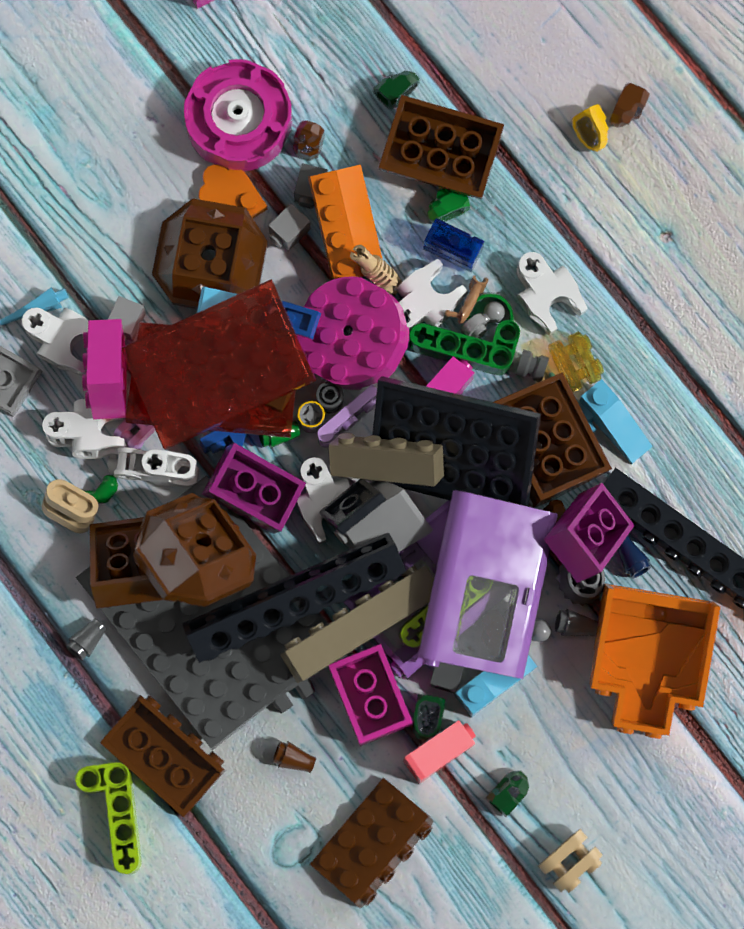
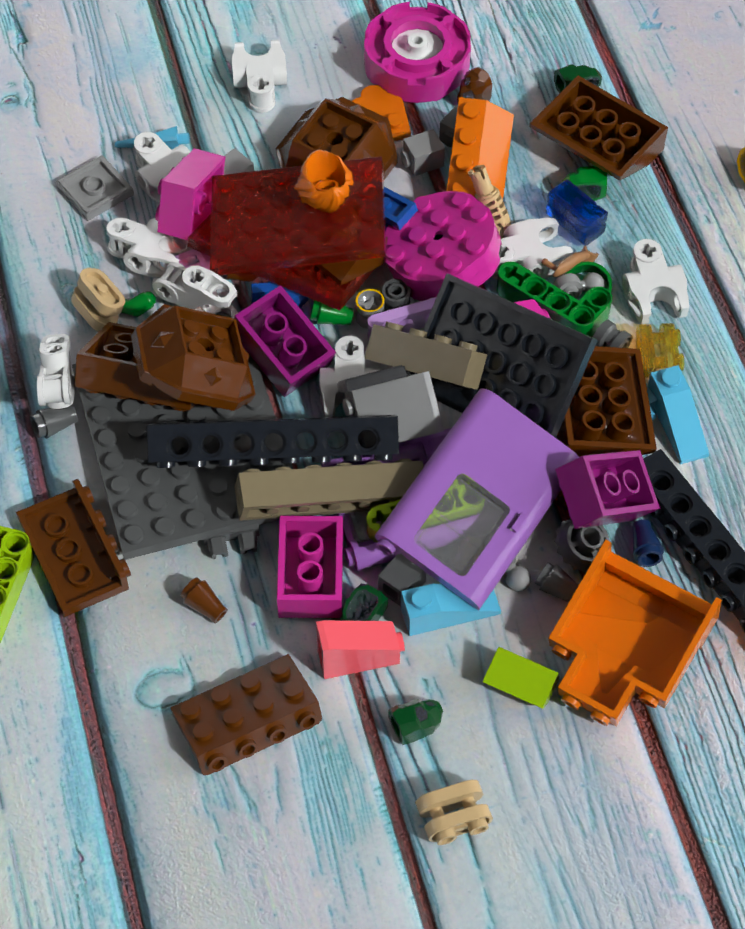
camera: 25 degrees right, 20 degrees down
(75, 603) = (55, 377): none -> white piece
(100, 194) = (259, 74): none -> white piece
(238, 337) = (324, 181): none -> orange hair
(578, 724) = (521, 678): none -> lime brick

